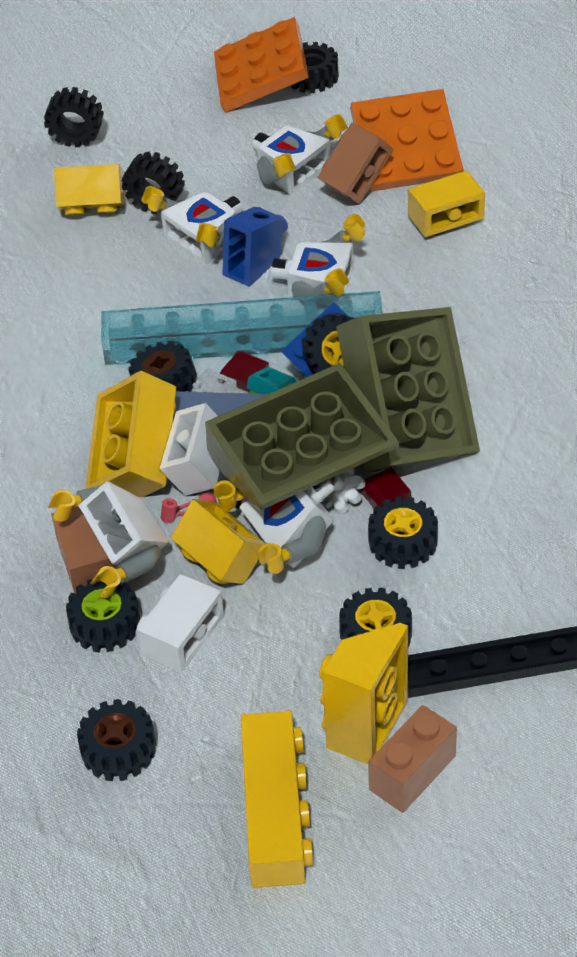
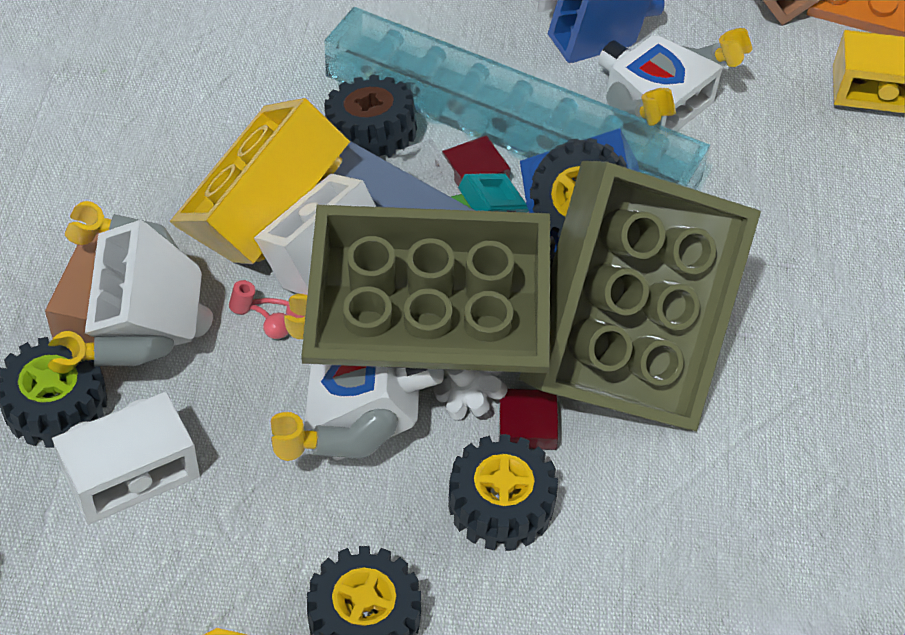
camera: 25 degrees right, 5 degrees up
(217, 542) = (251, 372): yellow brick -> none

